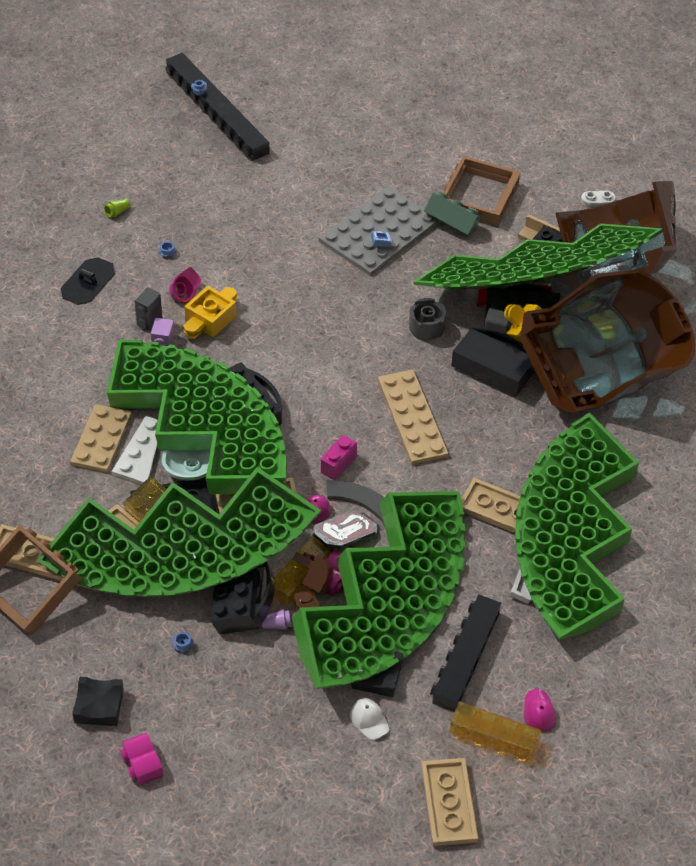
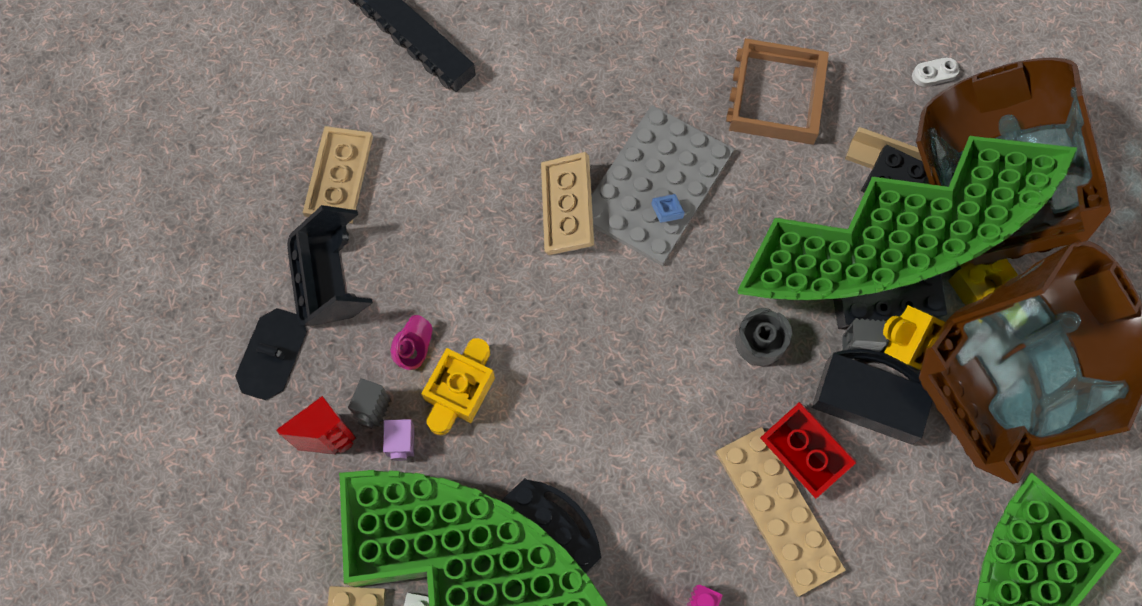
camera: 10 degrees left, 20 degrees up
(110, 313) = (318, 430): none -> red slope
(114, 208) = (284, 216): lime cone -> none
(131, 233) = (317, 268): none -> black windscreen
(159, 191) = (338, 169): none -> tan plate
(167, 249) = (371, 271): medium blue plate -> none
(312, 228) = (567, 204): none -> tan plate
(441, 382) = (808, 449): none -> red slope
(453, 212) = (755, 142): sand green brick -> none

